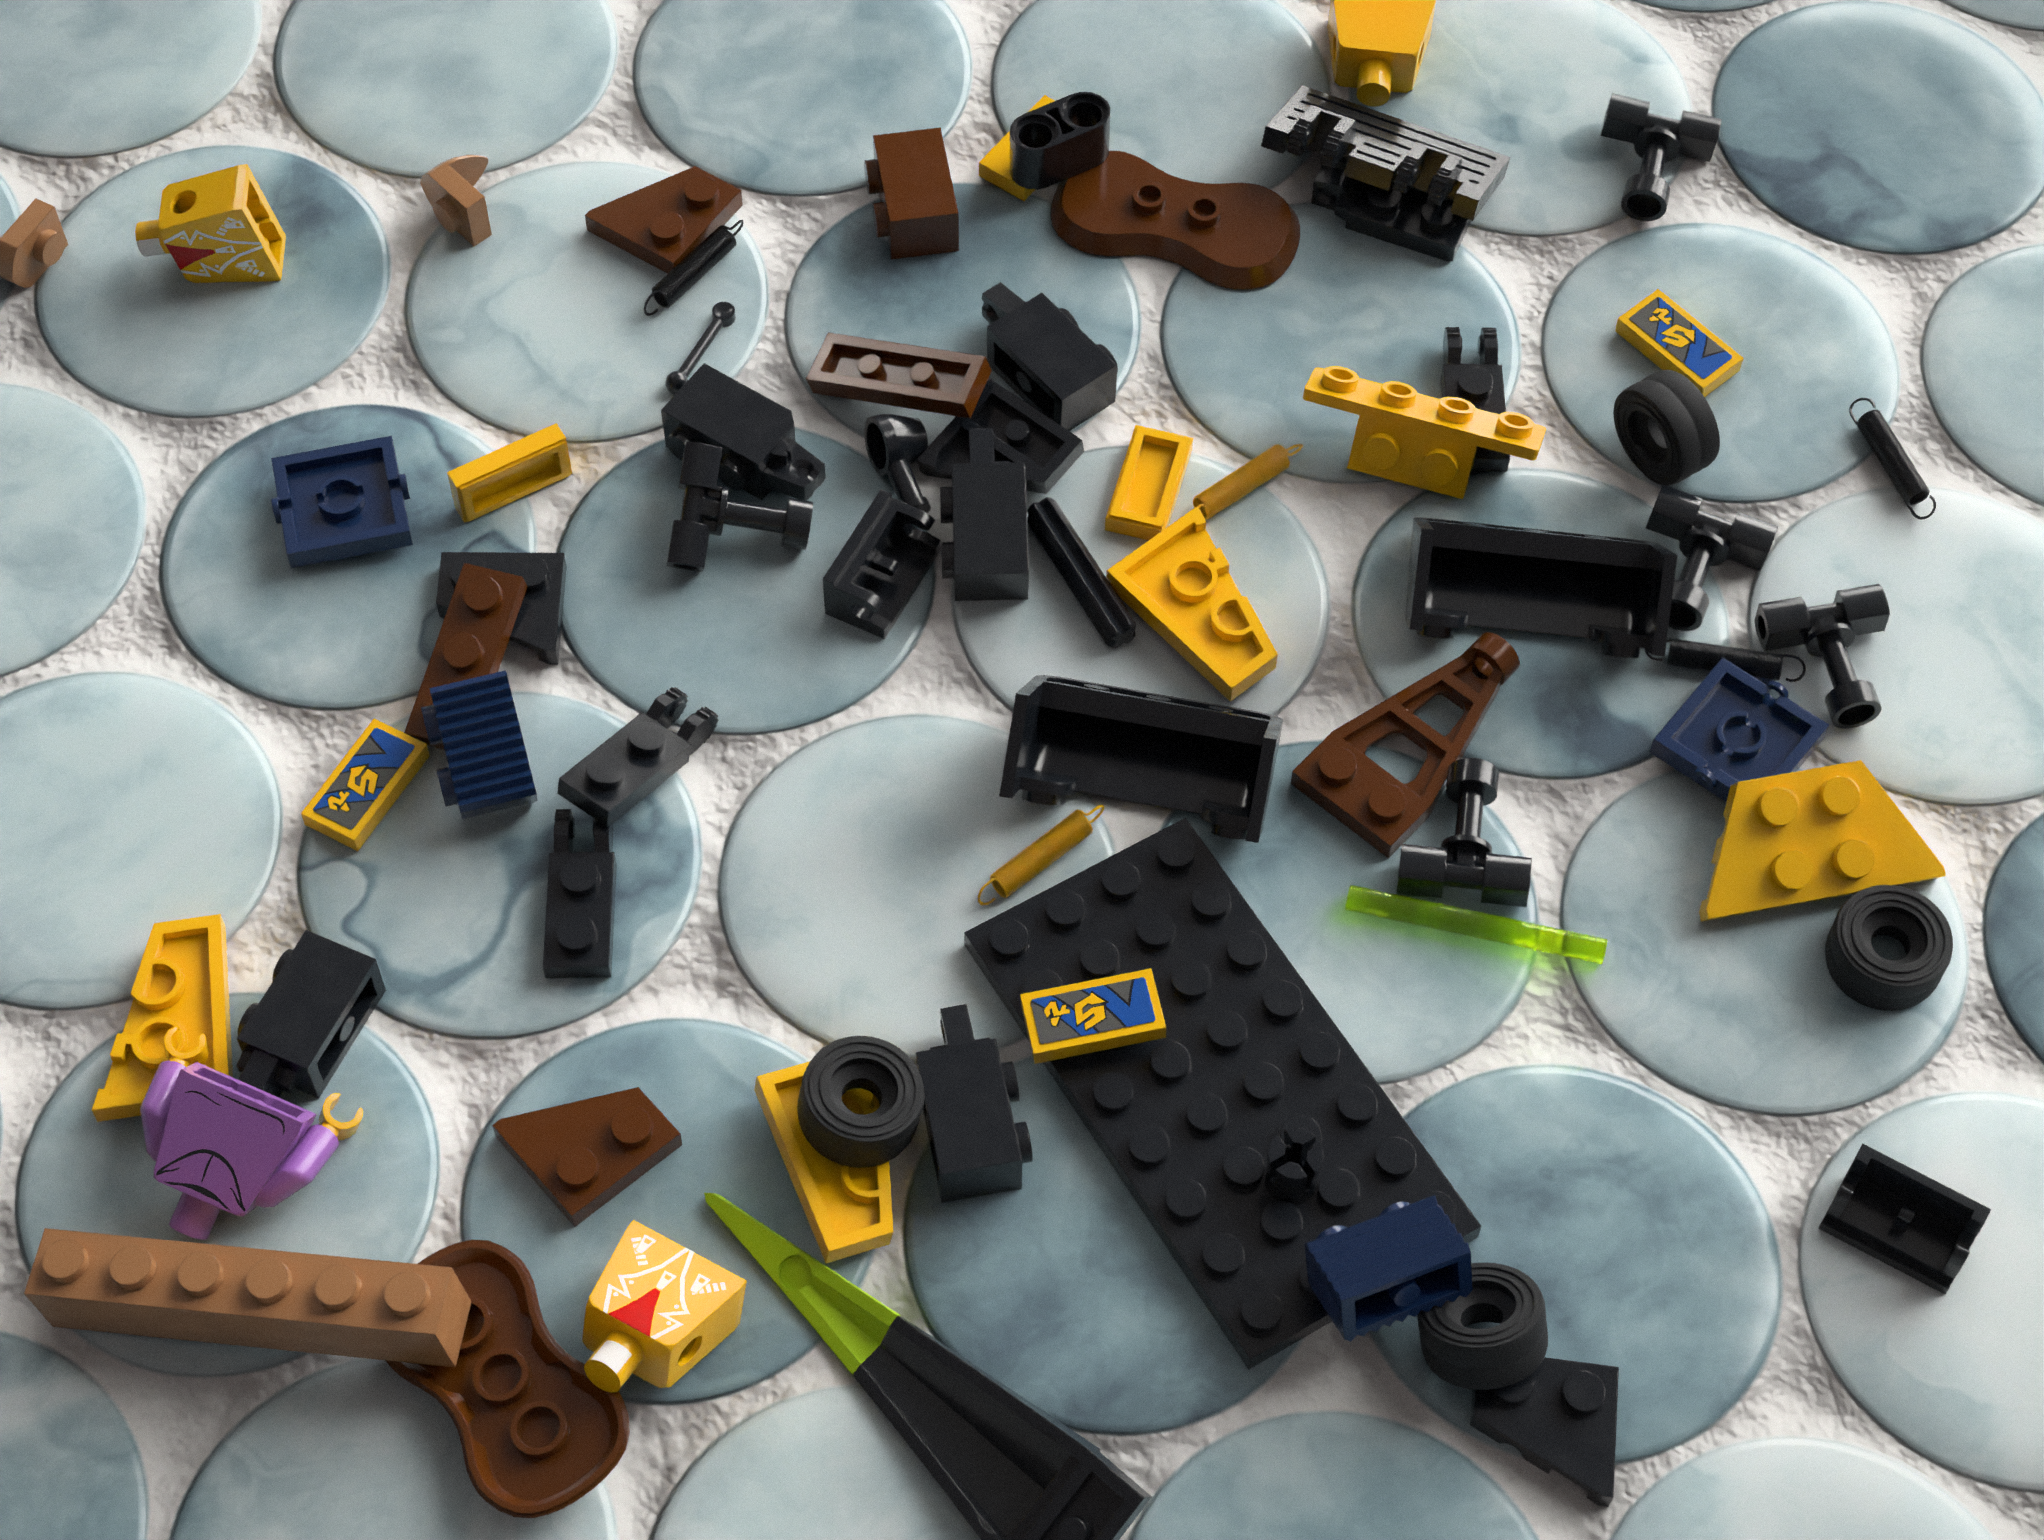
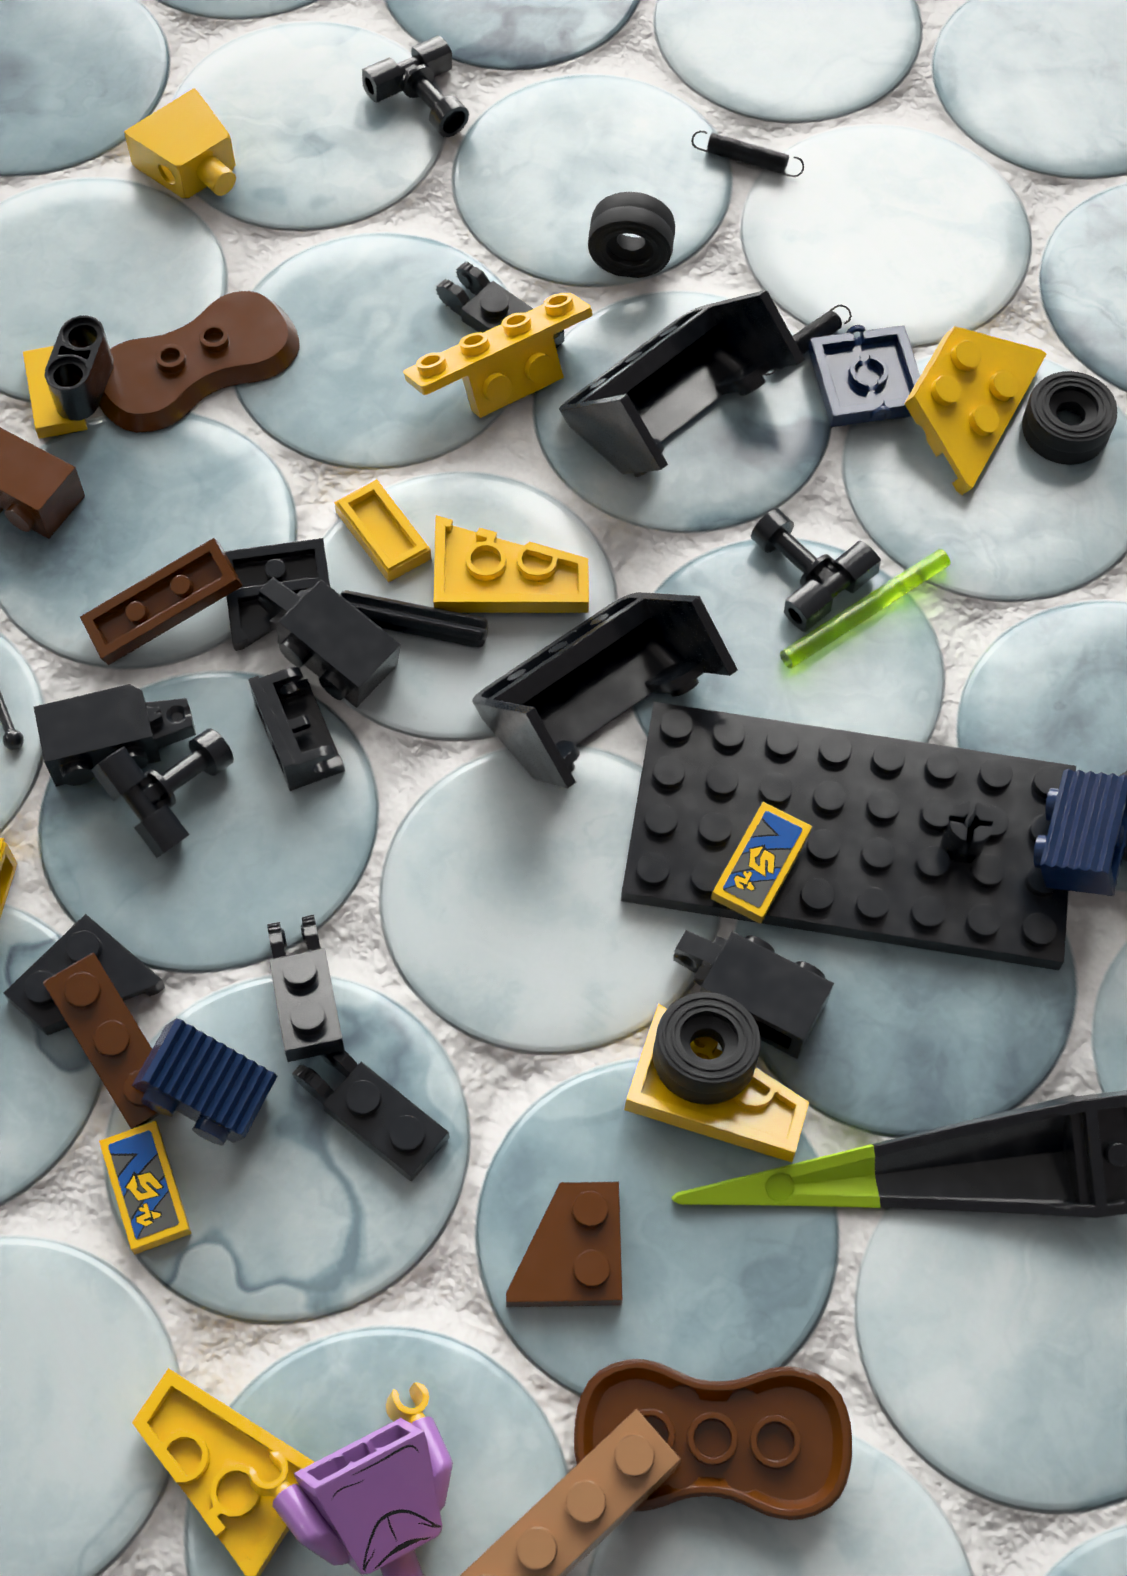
camera: 50 degrees left, 5 degrees up
(308, 1016) = (310, 1368): black hinge -> none
(657, 1311) = (748, 1298): yellow torso -> none
(892, 446) = (207, 652): black bar -> none
(1041, 853) = (600, 804): yellow piece -> none
(1047, 357) = (230, 506): black hinge -> none
(1244, 480) = (434, 479): yellow piece -> none
(1369, 797) = (730, 592): reddish brown plate -> none
(1387, 150) = (275, 210): black hinge -> none
(1391, 215) = (318, 245): black hinge -> none
(1678, 342) = (565, 185): tile -> none
(1704, 543) = (716, 280): black bar -> none
(1827, 634) = (836, 276): black bar -> none

